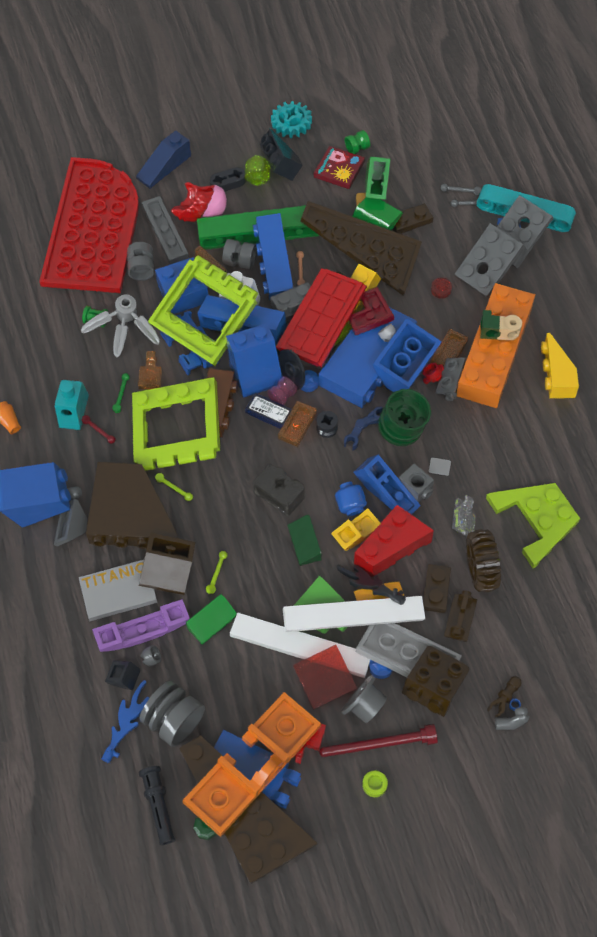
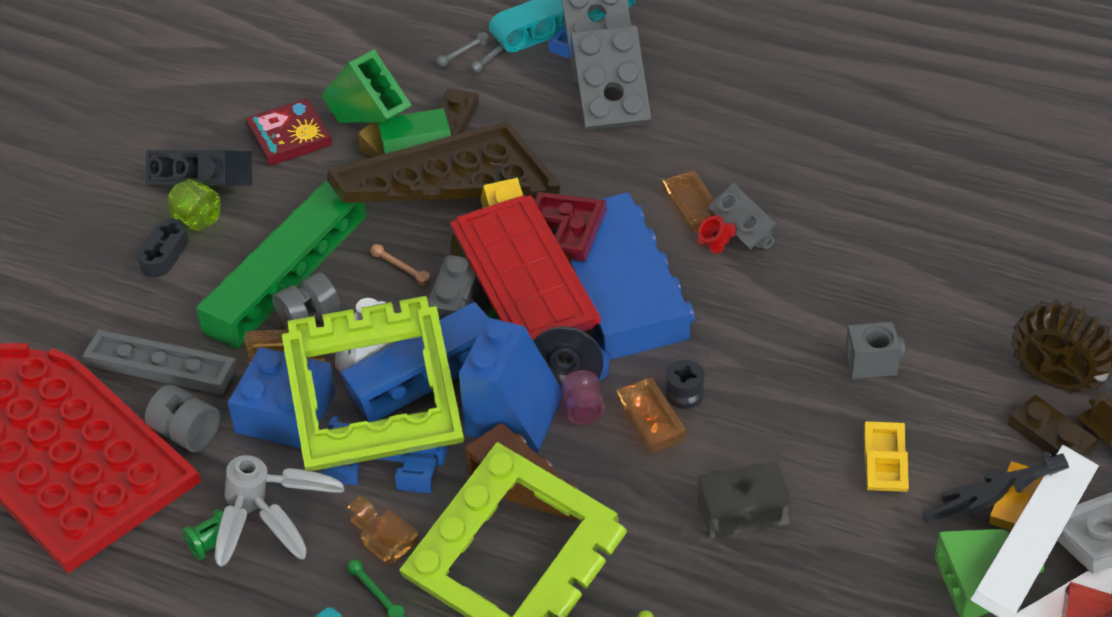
camera: 50 degrees left, 15 degrees down
(166, 158) = (42, 288): dark blue slope -> none
(201, 203) = (171, 290): red hair -> none
(268, 410) = (595, 435): tile -> none
(274, 254) = (356, 260): blue brick -> none
(291, 119) = (156, 125): teal gear -> none
(305, 541) = (852, 523): dark green slope -> none
(350, 499) = (834, 429): blue head -> none
(357, 142) = (276, 88): green wheel -> none
(371, 419) = (717, 354): dark blue piece -> none
(385, 484) = (843, 381): blue slope -> none
(387, 332) = (622, 223): light grey hinge -> none
(392, 540) = (942, 425): red wedge -> none
(404, 417) = (766, 292): dark green wheel -> none
(405, 356) = (680, 234): blue slope -> none
(439, 466) = (860, 315): light grey sticker -> none
(441, 288) = (590, 151): clear red tile -> none
(463, 517) = (972, 338): clear plate -> none
(492, 359) = (740, 148): orange brick -> none
(499, 326) = (733, 116): leg -> none
(546, 512) = (1026, 258): lime wing -> none
(561, 372) = (831, 120): yellow slope -> none

